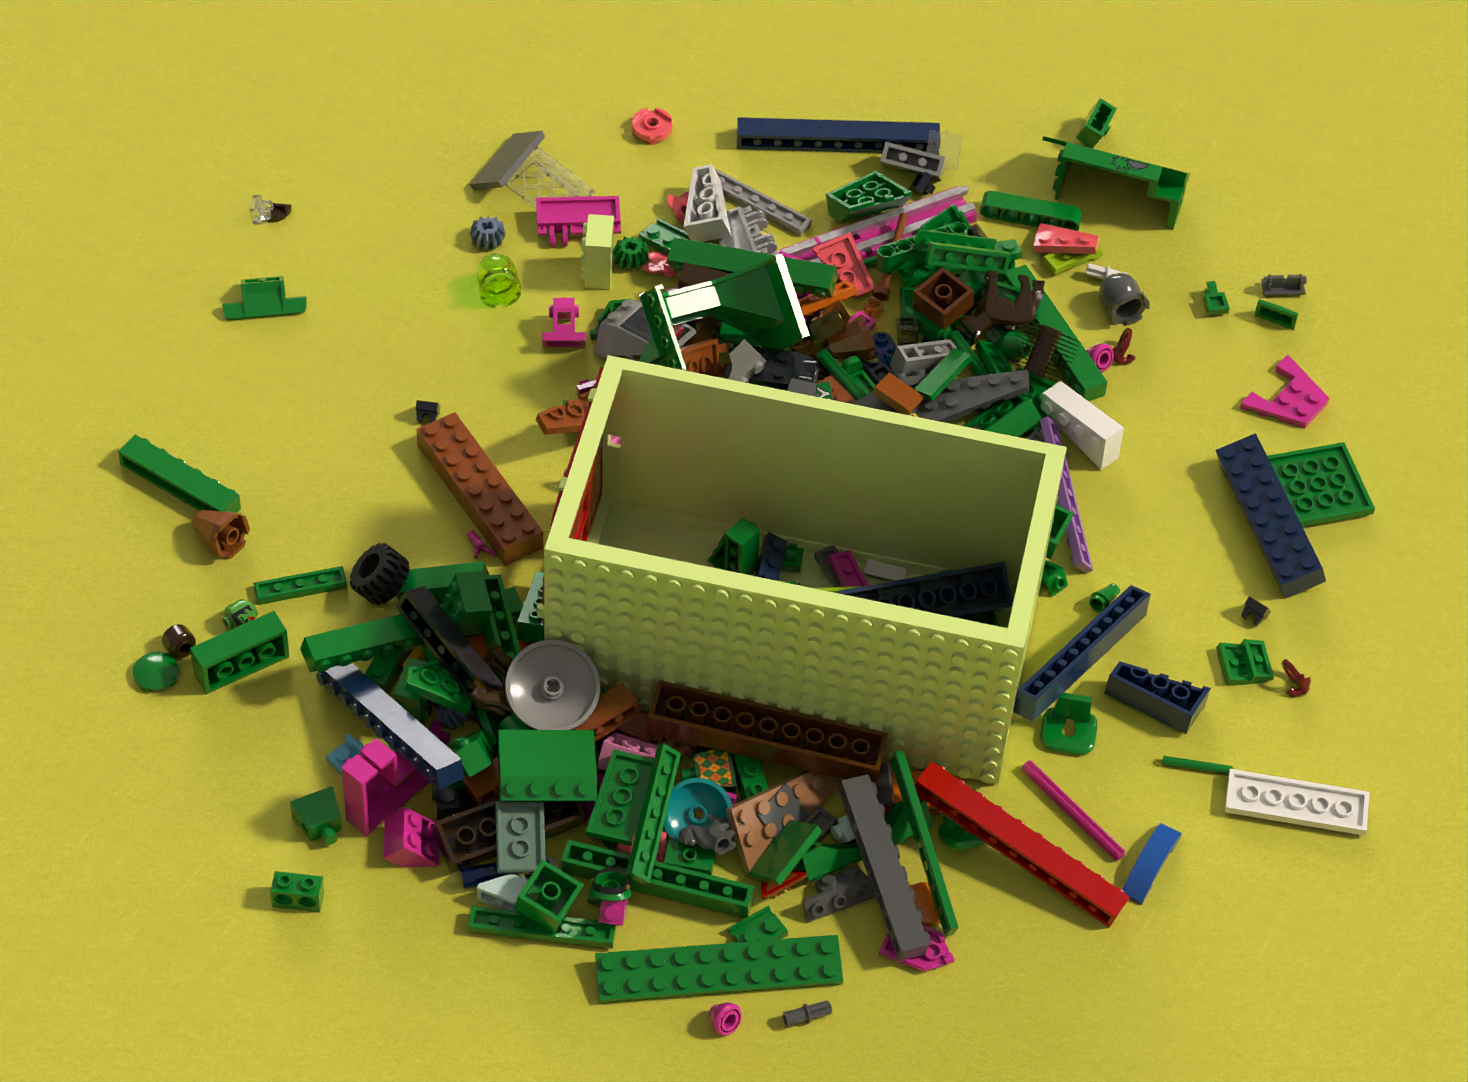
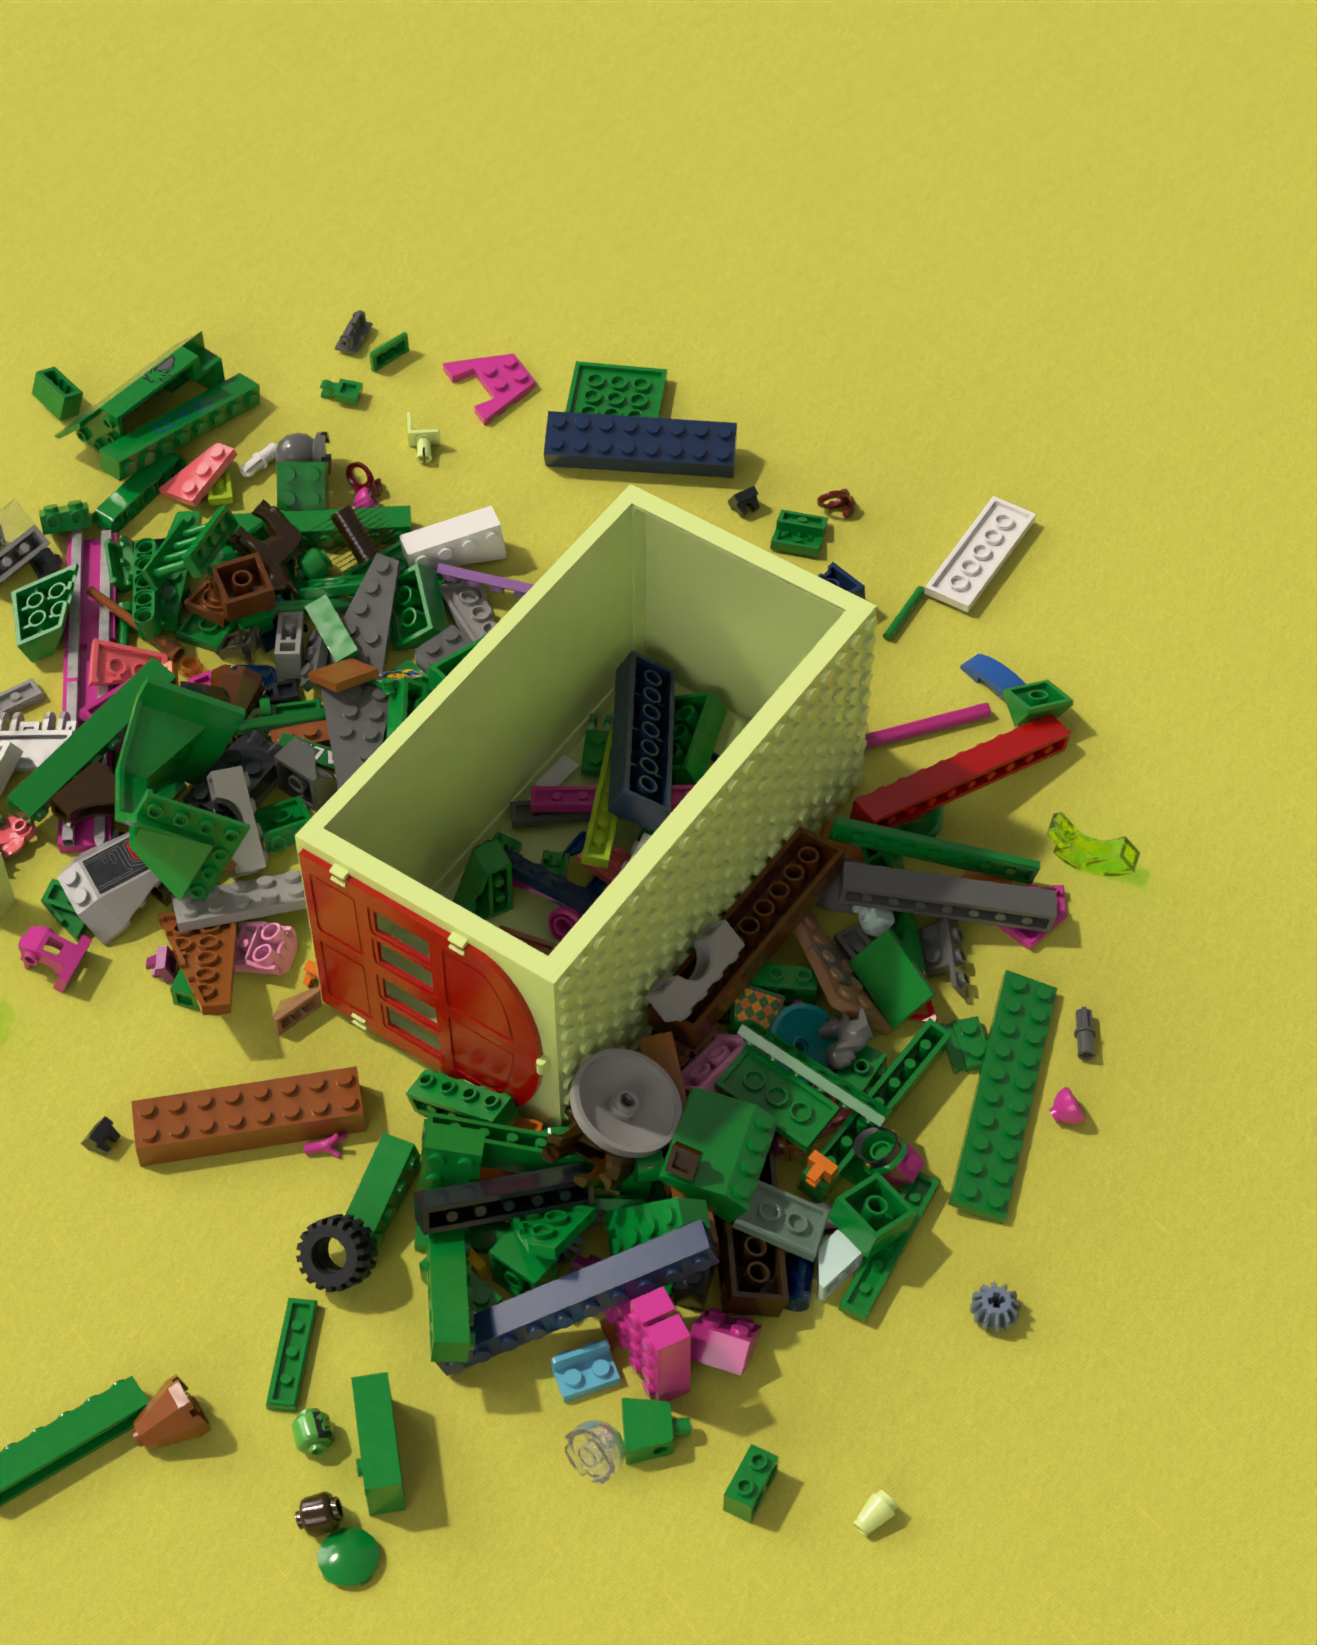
camera: 65 degrees left, 0 degrees up
(287, 785) = (595, 1450): none -> clear cylinder
(305, 980) = (876, 1511): none -> yellowish green cone
(512, 735) = (684, 1161): none -> dark brown tile
(513, 1013) = (998, 1297): none -> sand blue gear
(569, 845) = (820, 1169): none -> orange tile
(664, 688) = (715, 949): none -> light grey arch
(970, 175) = (65, 518): none -> green plate
(995, 963) = (1091, 855): none -> clear neon green arch
(1085, 305) = (302, 485): none -> green brick
(1103, 208) = (179, 426): none -> green brick
(1138, 882) = (1035, 701): none -> green slope
(1191, 368) = (423, 440): none -> yellowish green bracket

